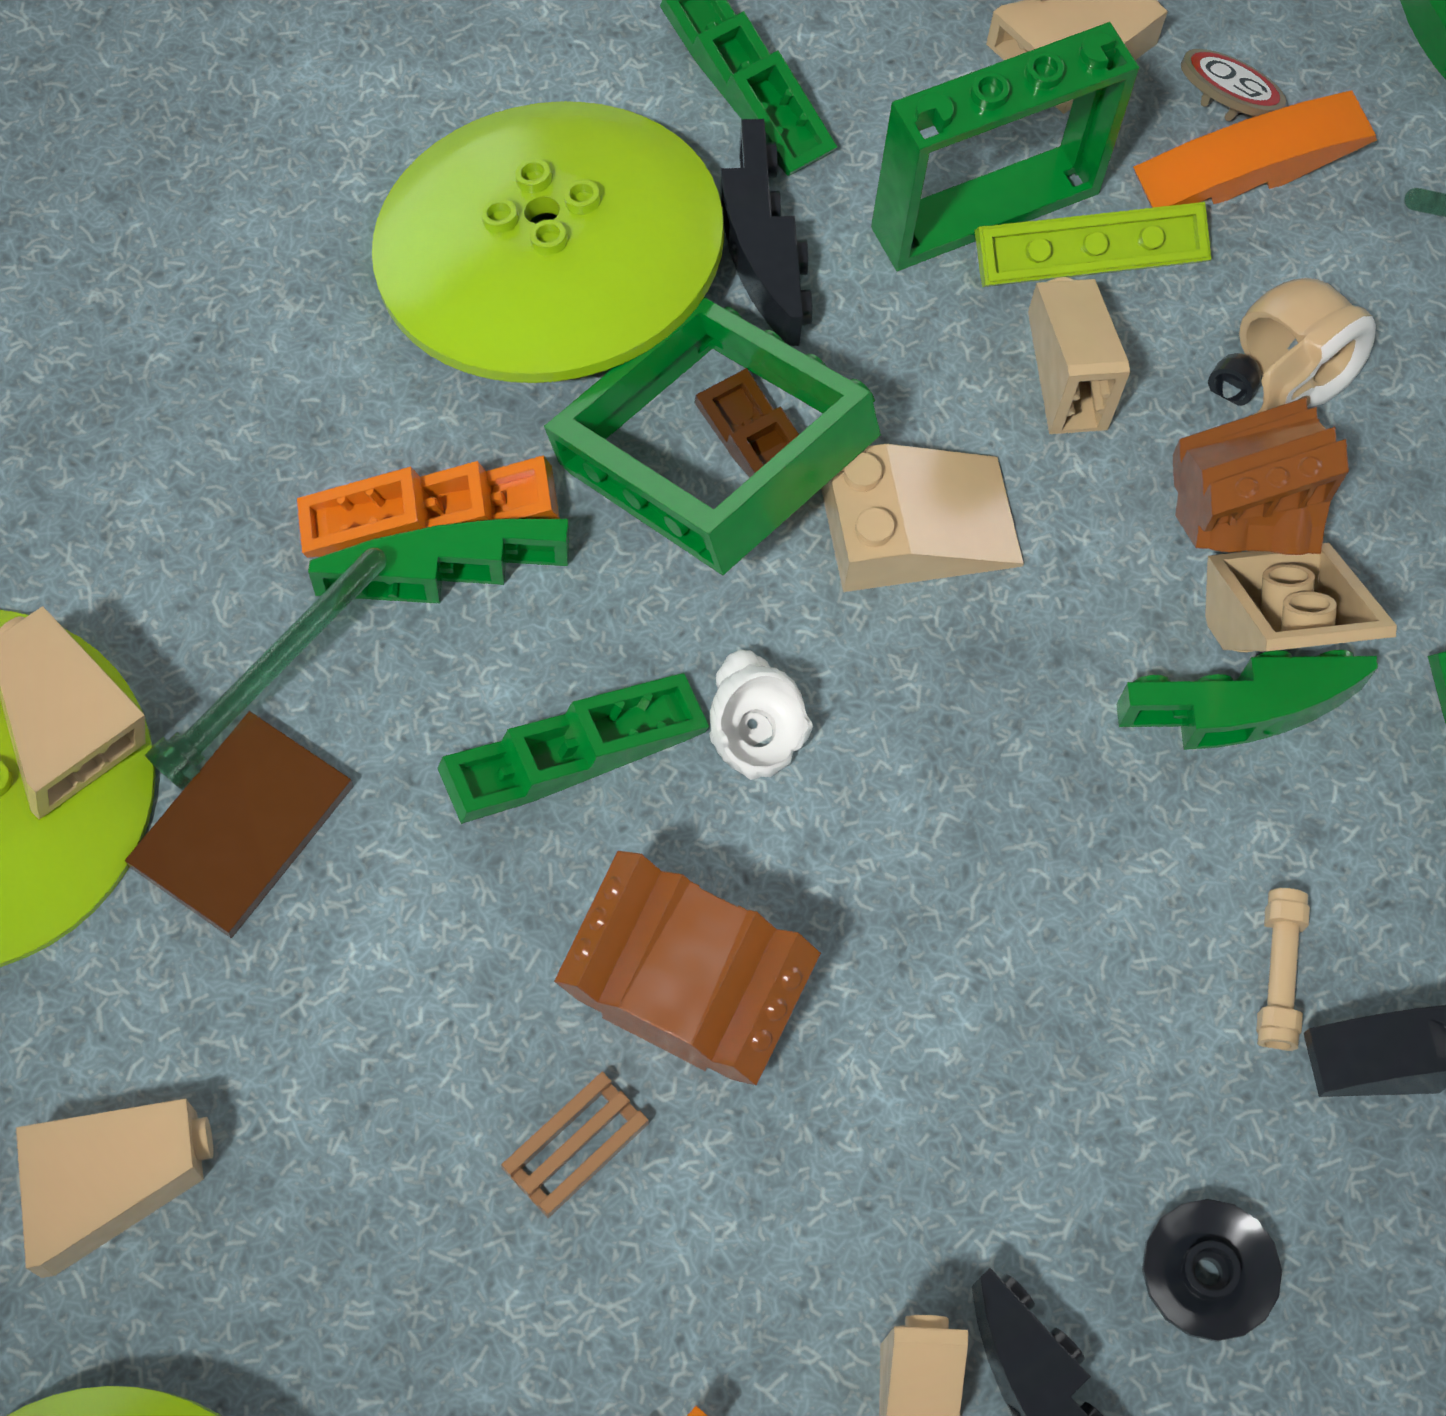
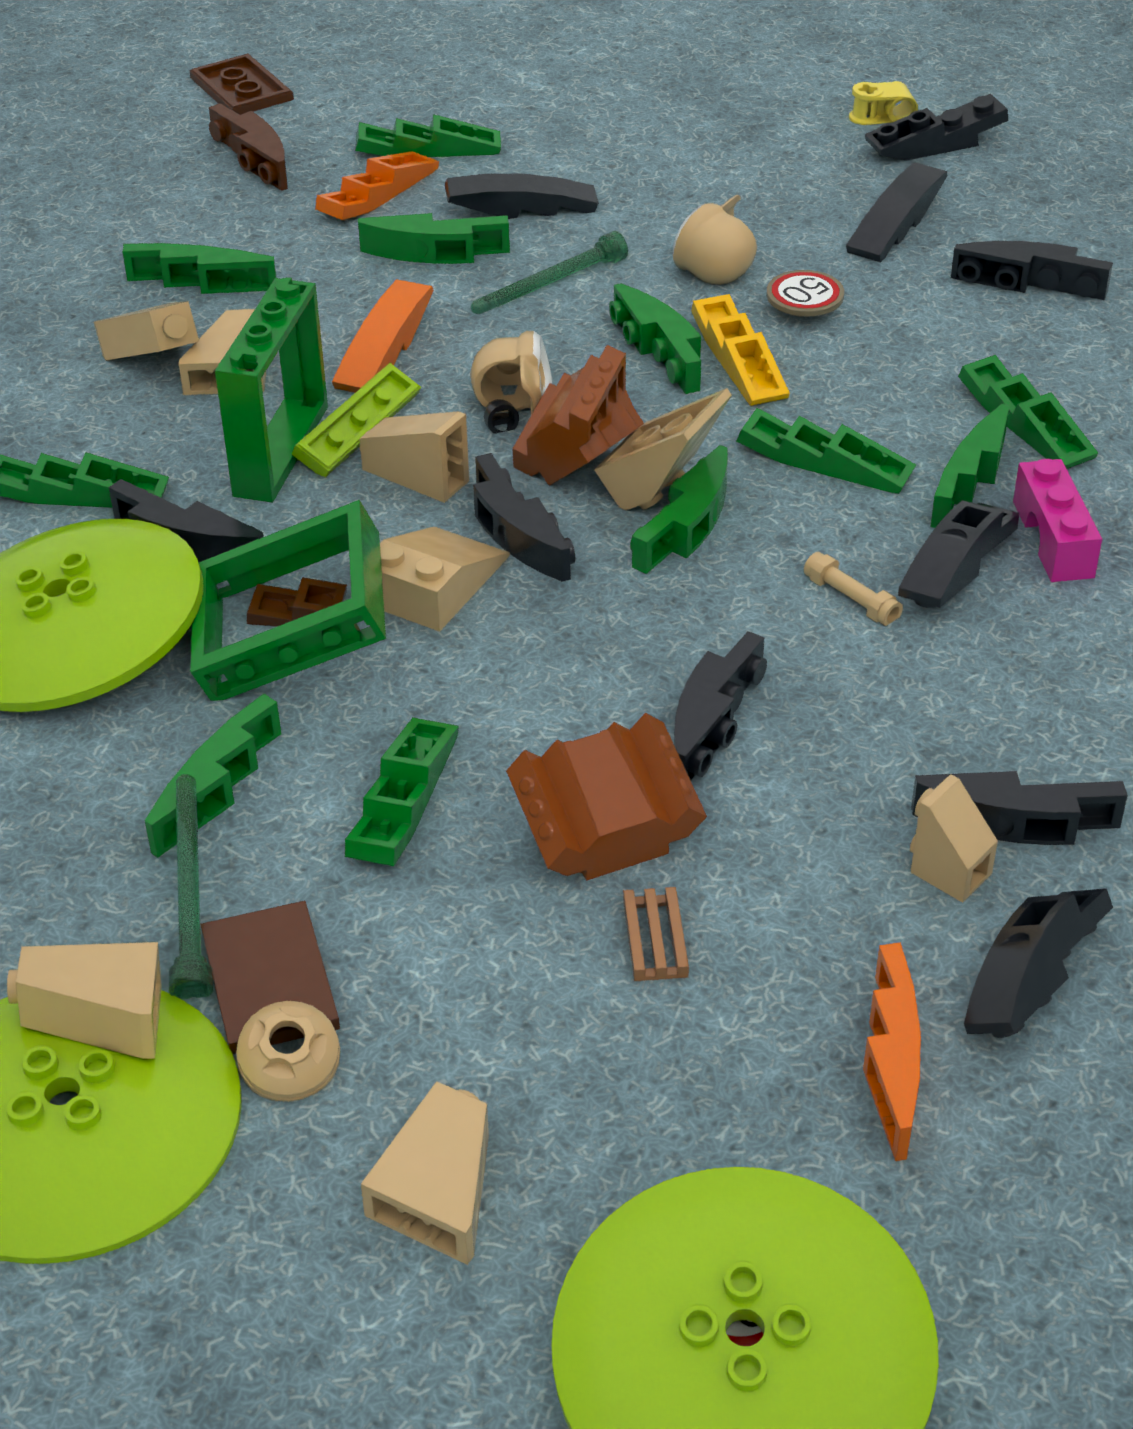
camera: 45 degrees left, 25 degrees down
(182, 928) = (292, 1074): none -> tan piece
(408, 502) = (149, 770): orange slope -> none
(750, 686) = (471, 688): white piece -> none
(917, 963) = (711, 698): none -> black slope
(1066, 538) = (520, 524): none -> black slope
(1231, 83) = (334, 319): piece -> none
(1245, 1265) = (997, 704): black dish -> none

